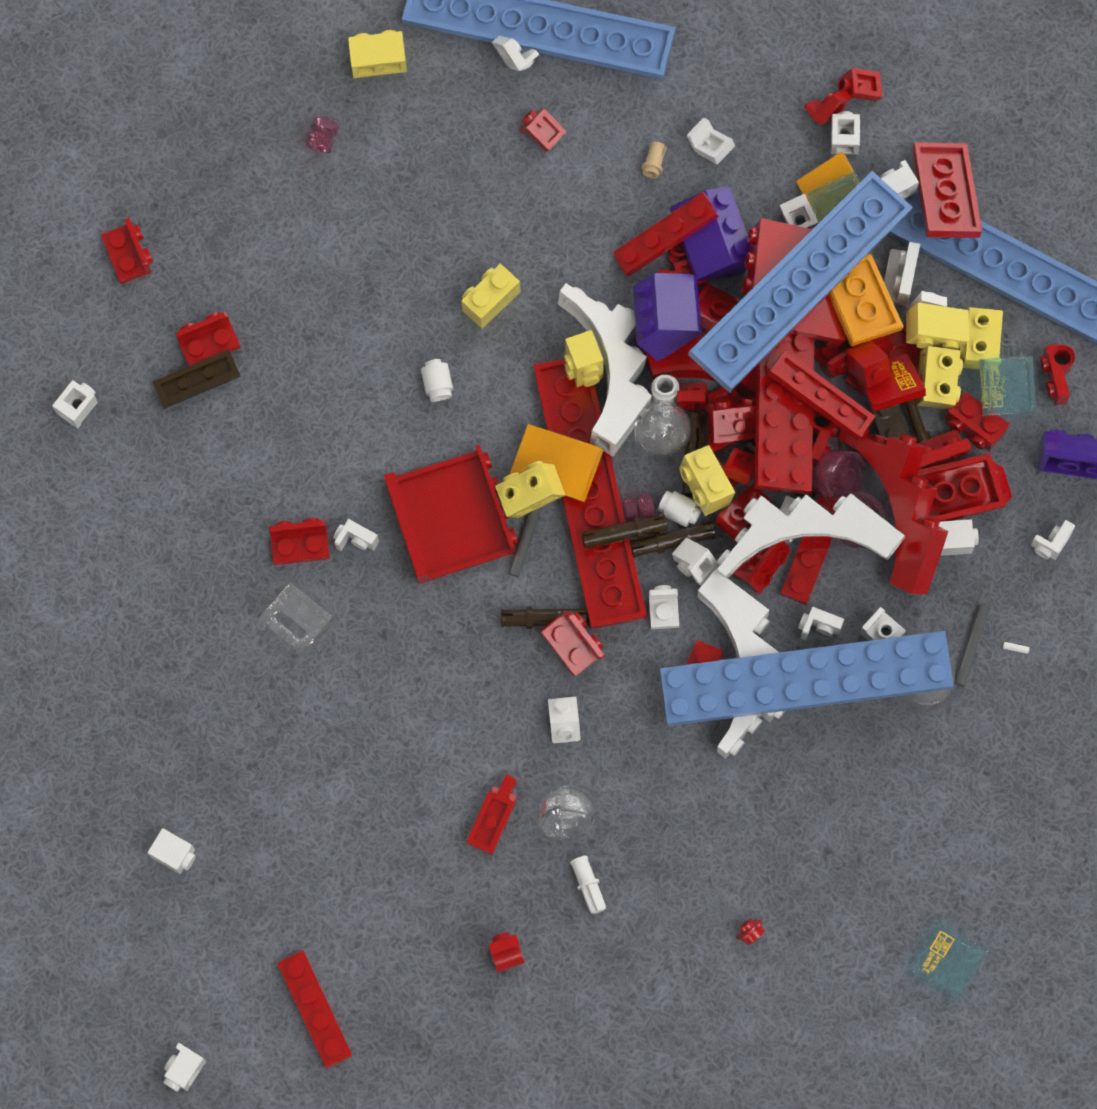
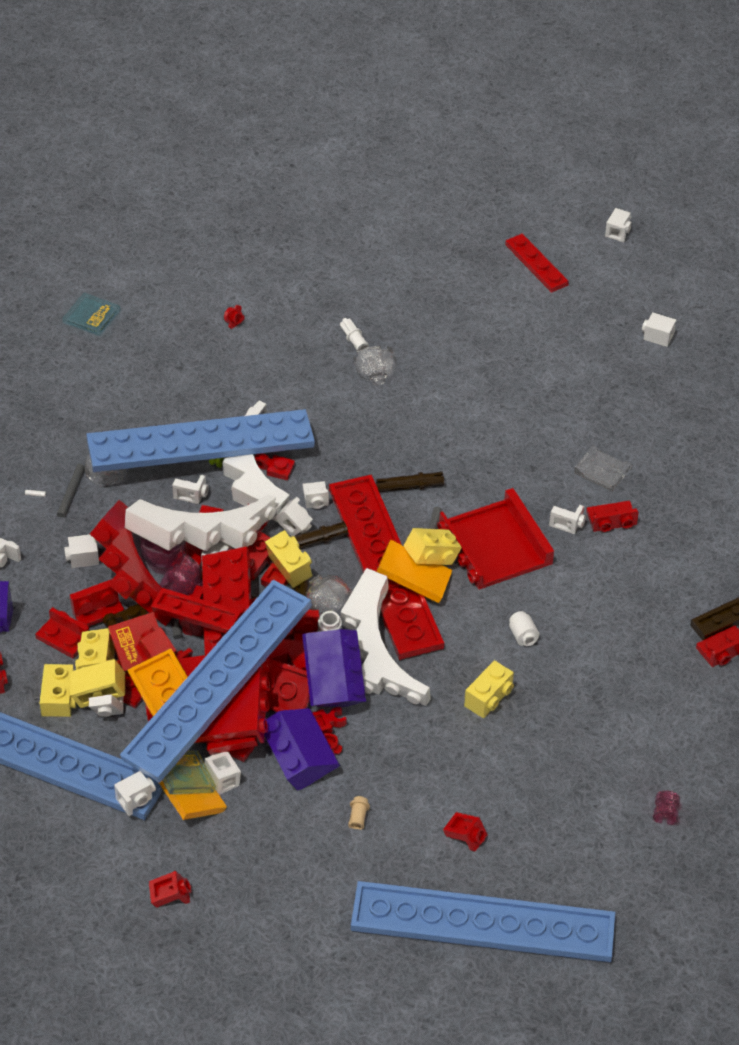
camera: 170 degrees right, 25 degrees down
(377, 54) = (631, 876): light yellow brick -> none
(493, 817) = (428, 366): red hinge -> none
(505, 951) = (408, 288): red plate -> none
(513, 54) = (501, 886): white bracket -> none
(564, 719) = (385, 423): white bracket -> none
(572, 642) = (384, 463): bracket -> none
(583, 359) = (401, 628): light yellow brick -> none
(633, 529) = (349, 530): dark brown pin -> none
(644, 504) = (342, 553): clear pink wheel -> none
(666, 234) = (340, 740): red plate -> none
(679, 508) = (316, 553): white brick -> none
(709, 142) = (307, 828): white bracket -> none
(740, 466) = (261, 576): red bracket -> none
(832, 104) = (200, 862): red bracket -> none
(845, 143) = (182, 844): white brick -> none
(879, 620) = (140, 487): white brick -> none
(900, 273) = (127, 727): white bracket -> none
(946, 190) = (88, 796): plate -> none
(967, 488) = (71, 577): red slope -> none
(1007, 385) = (36, 652): clear light blue tile -> none

